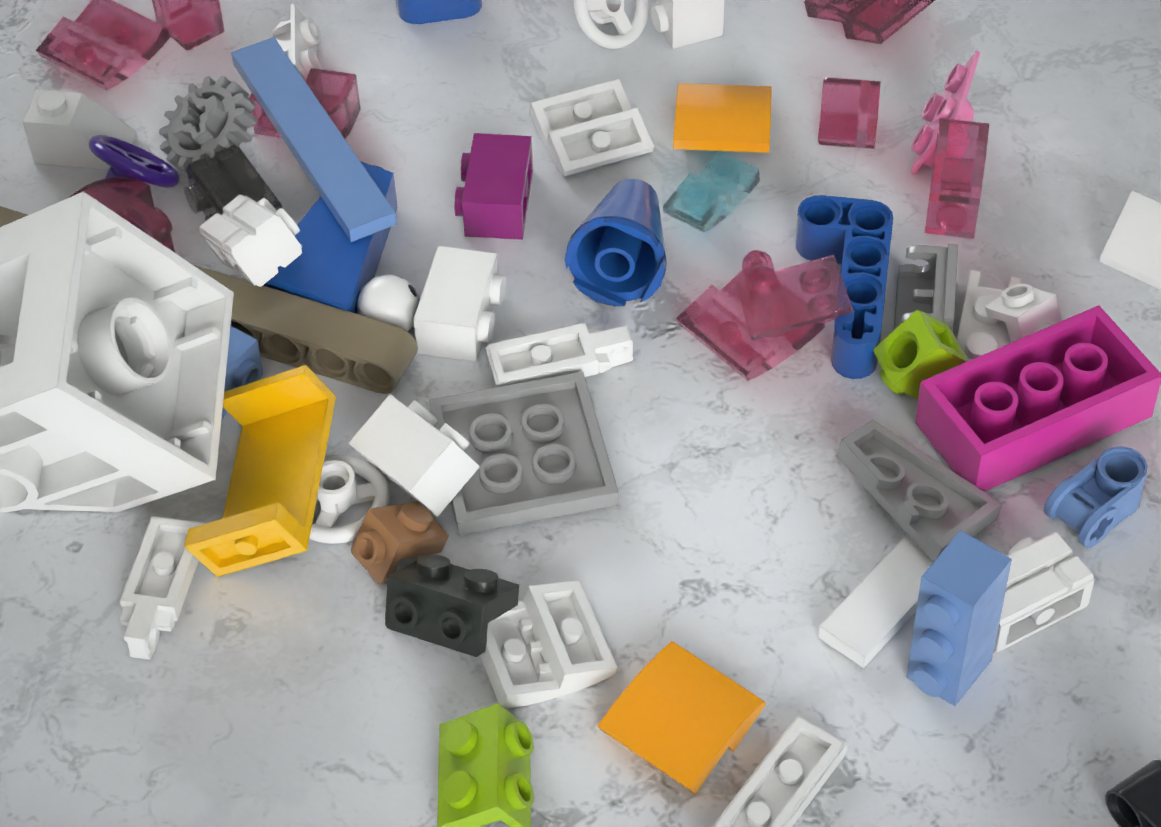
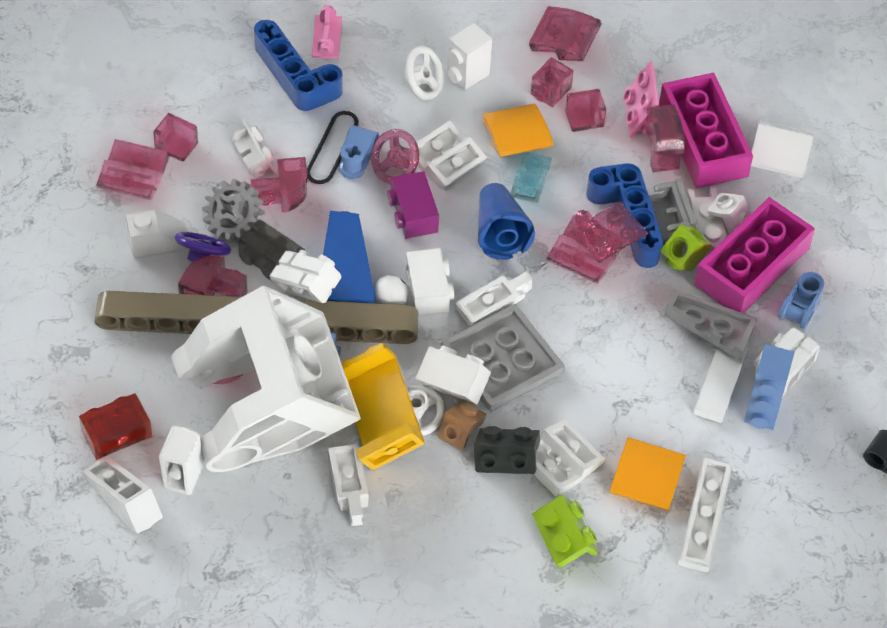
camera: 25 degrees left, 5 degrees up
(314, 139) = (304, 204): medium blue tile -> none
(388, 123) = (321, 144): none -> black piece
(451, 90) = (357, 151): none -> medium blue piece
(507, 109) = (407, 159): none -> clear pink piece
(809, 58) = (551, 82): none -> clear pink brick
(1038, 185) = (712, 137): none -> dark pink brick

